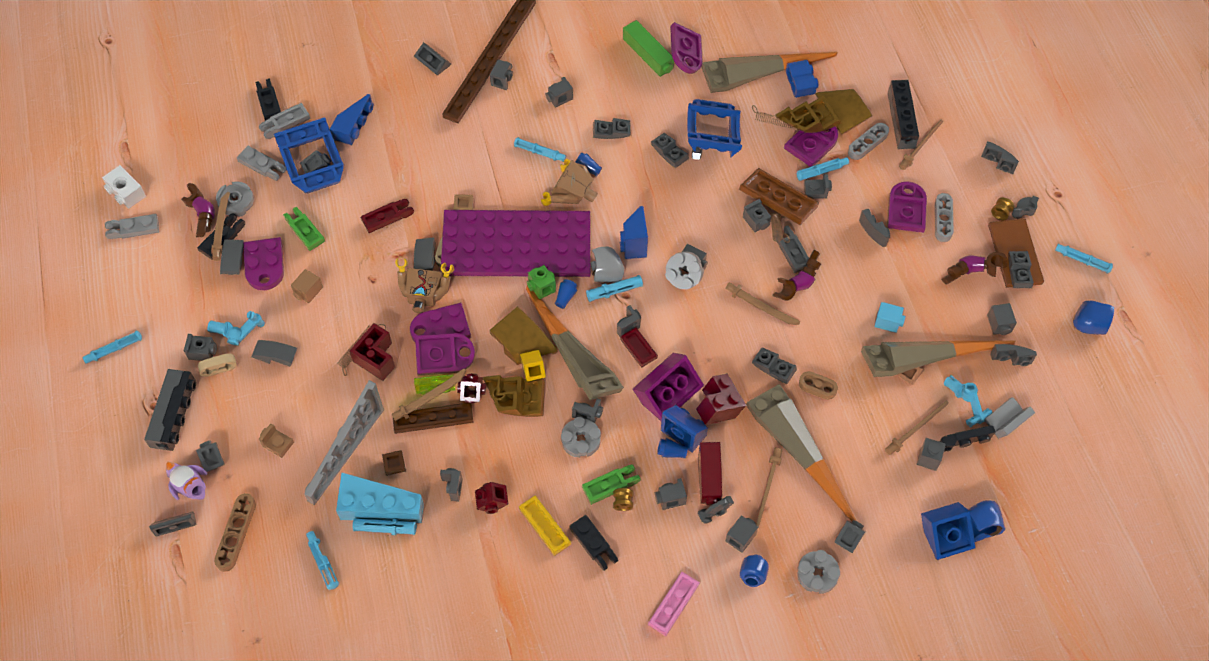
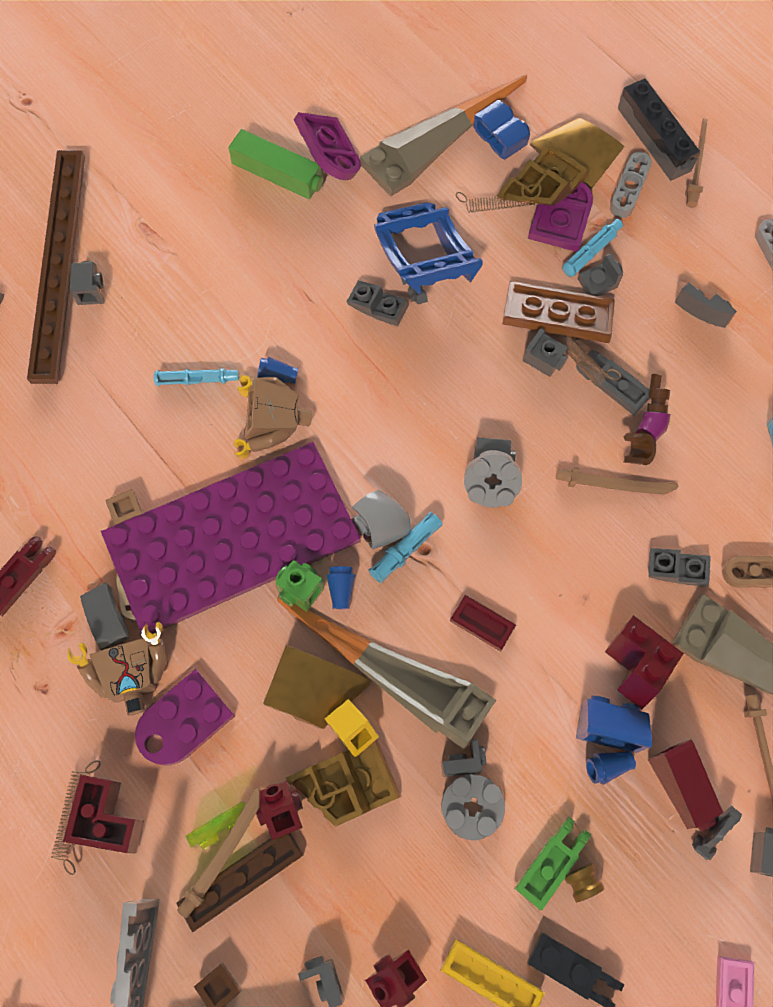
camera: 25 degrees left, 10 degrees up
(441, 353) = (207, 770): magenta plate -> none
(560, 93) = (184, 278): dark grey brick -> none
(611, 130) = (280, 306): dark grey slope -> none
(630, 322) = (452, 597): dark grey bracket -> none
(634, 236) = (401, 456): blue slope -> none
(668, 385) = (556, 668): magenta slope -> none
(671, 495) = (647, 841): dark grey brick -> none
(907, 210) = (732, 261): magenta plate -> none

